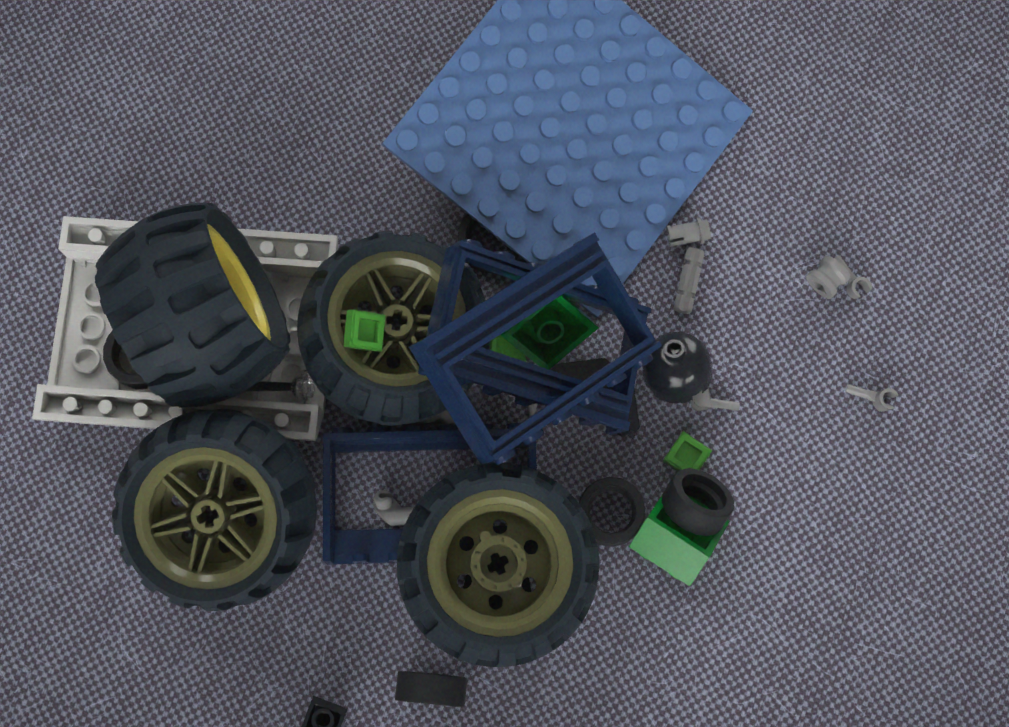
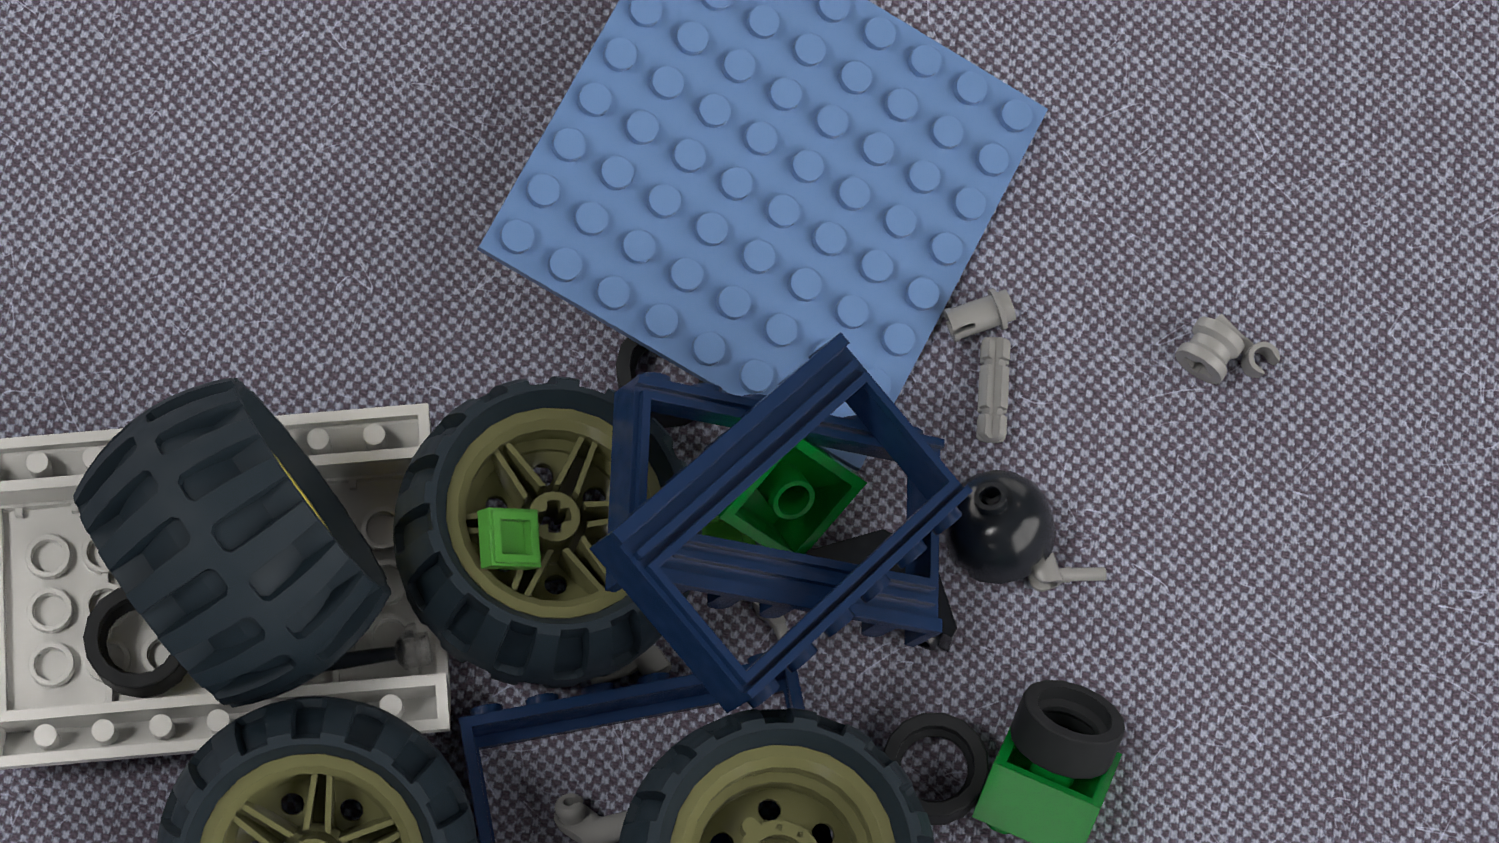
camera: 15 degrees left, 5 degrees down
(687, 453) = (1036, 659): bright green tile -> none
(875, 397) = (1312, 525): light grey hand -> none

